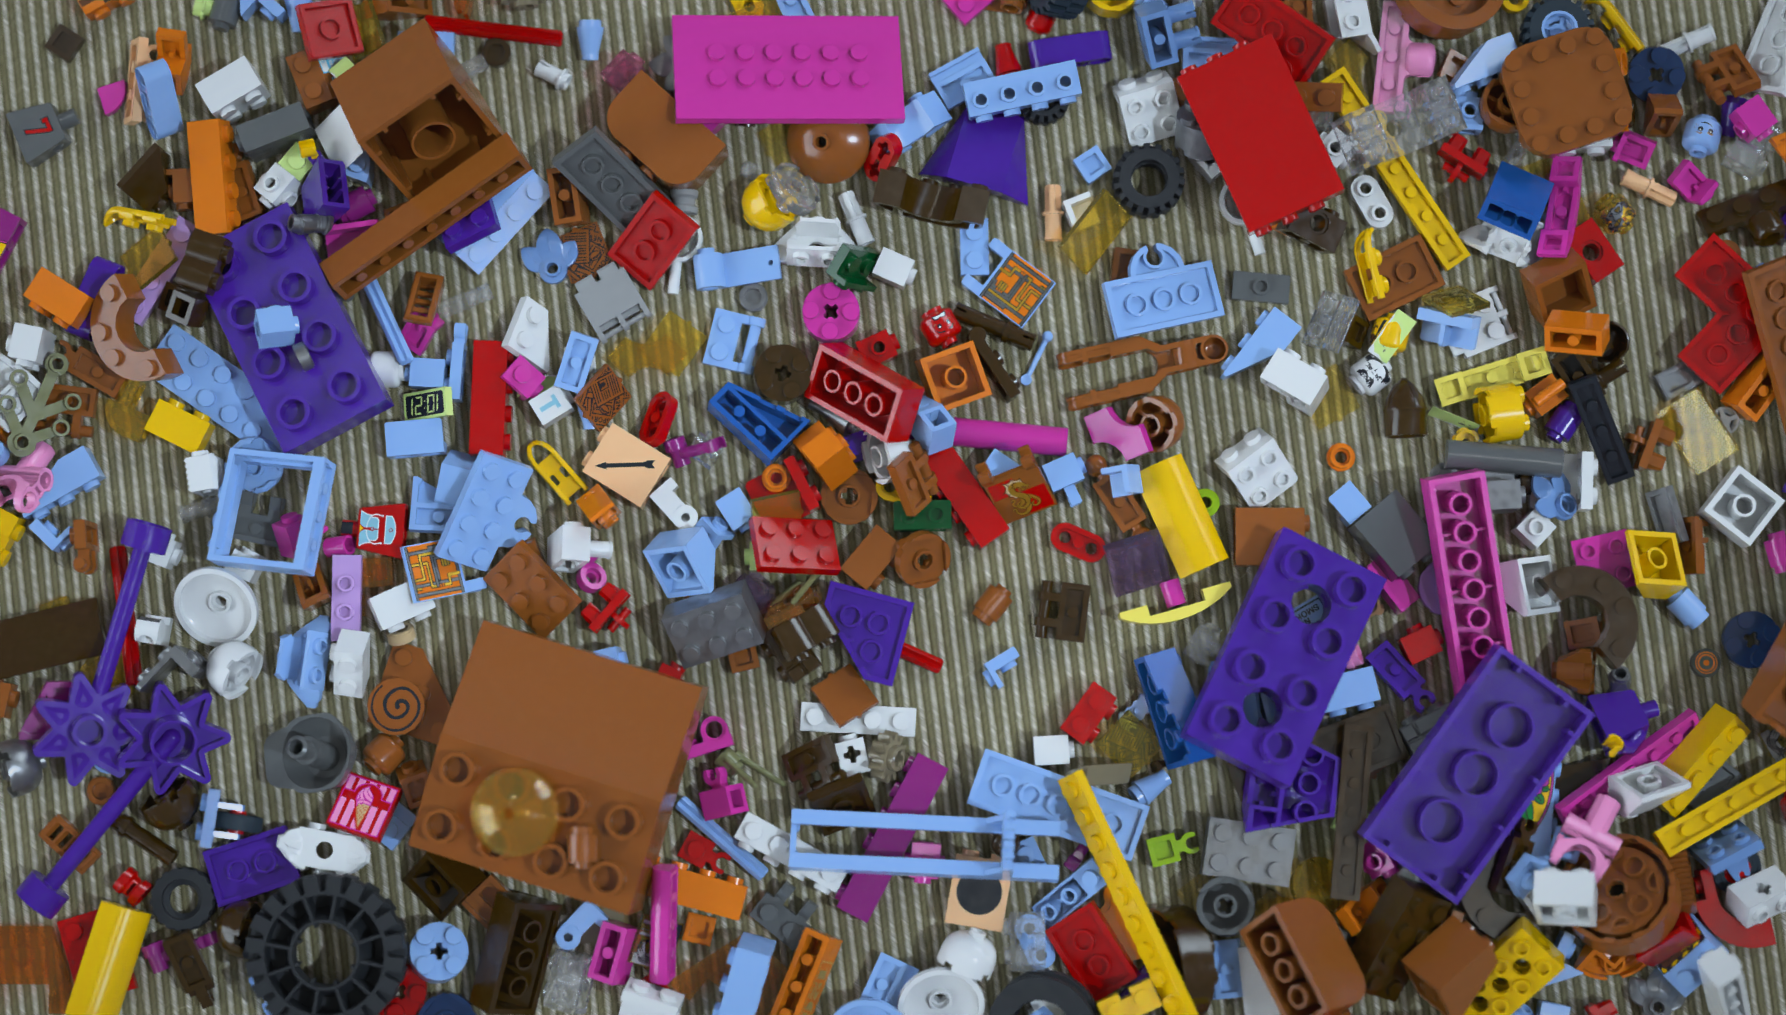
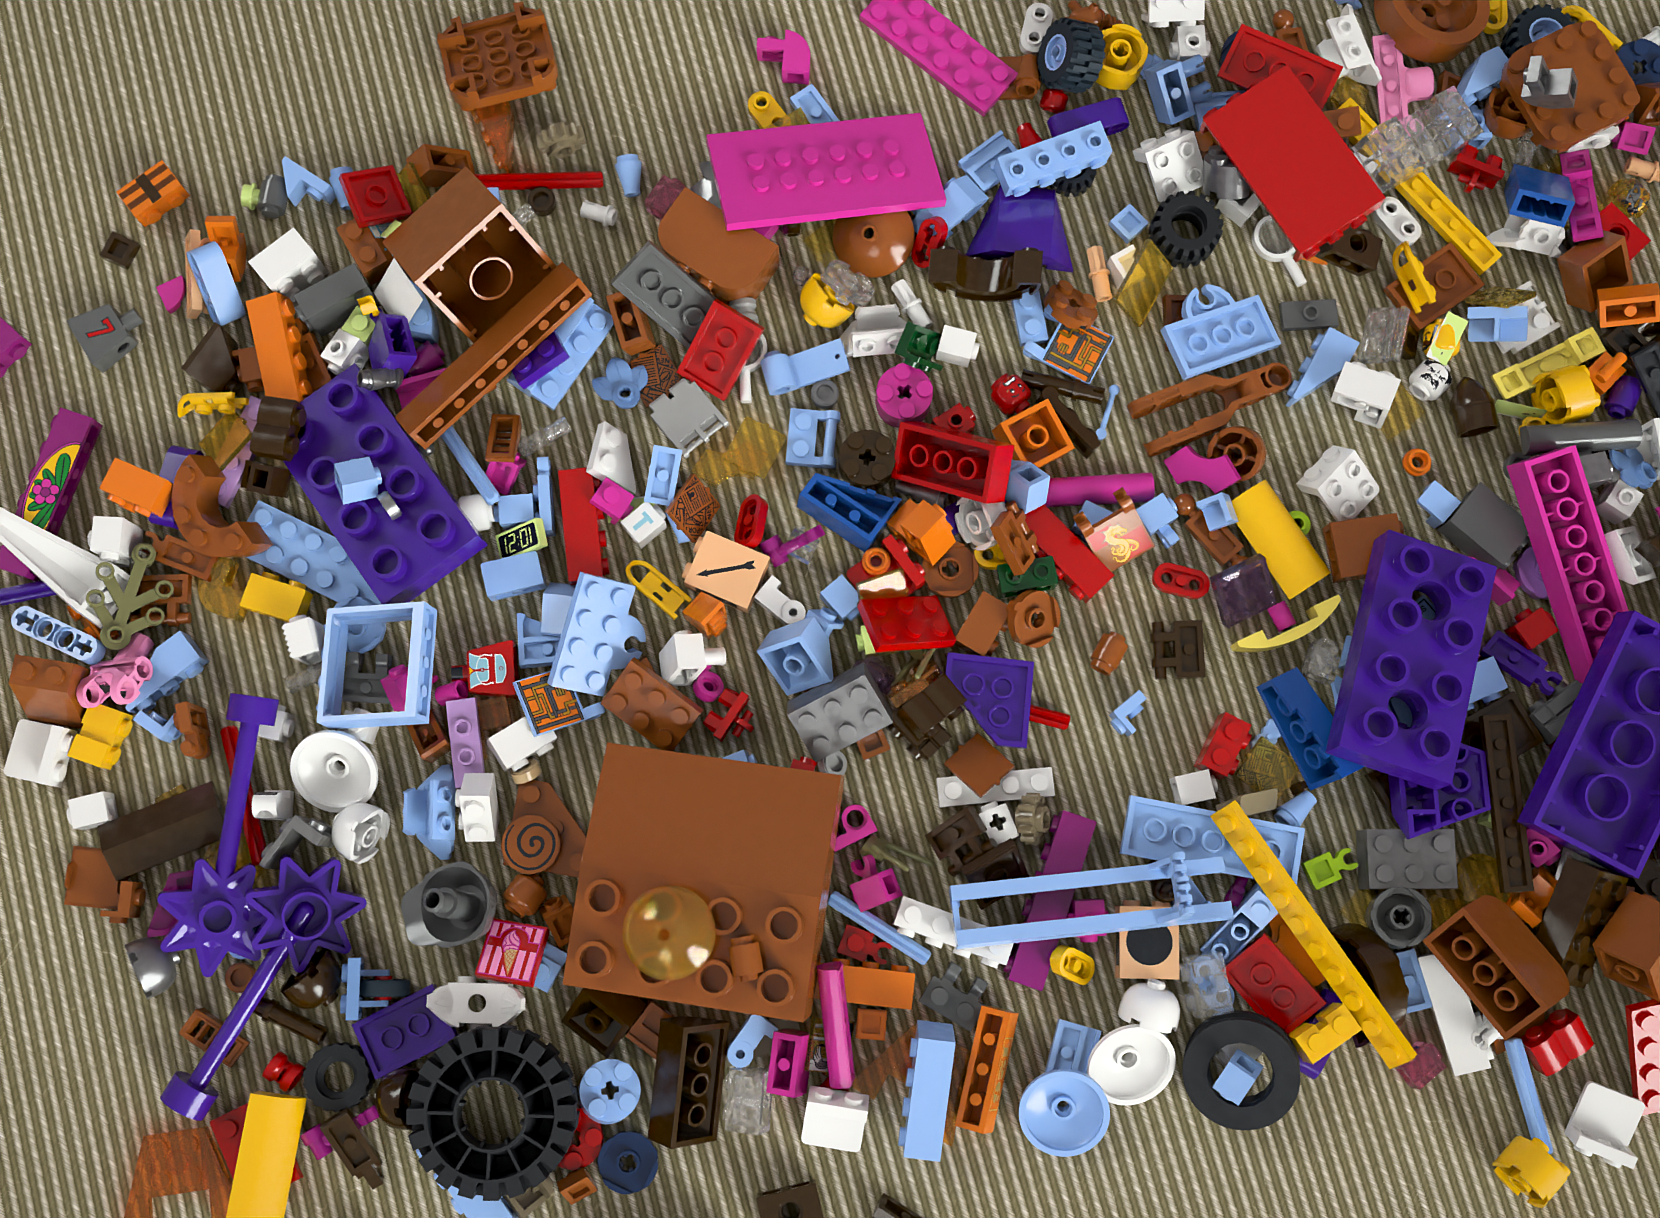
camera: 15 degrees left, 5 degrees down
(702, 674) = (833, 764): none -> light grey tile
(901, 902) = (1072, 964): none -> yellow plate
(1029, 244) = (1071, 306): none -> dark orange plate
(1534, 95) = (1548, 87): none -> flat silver brick

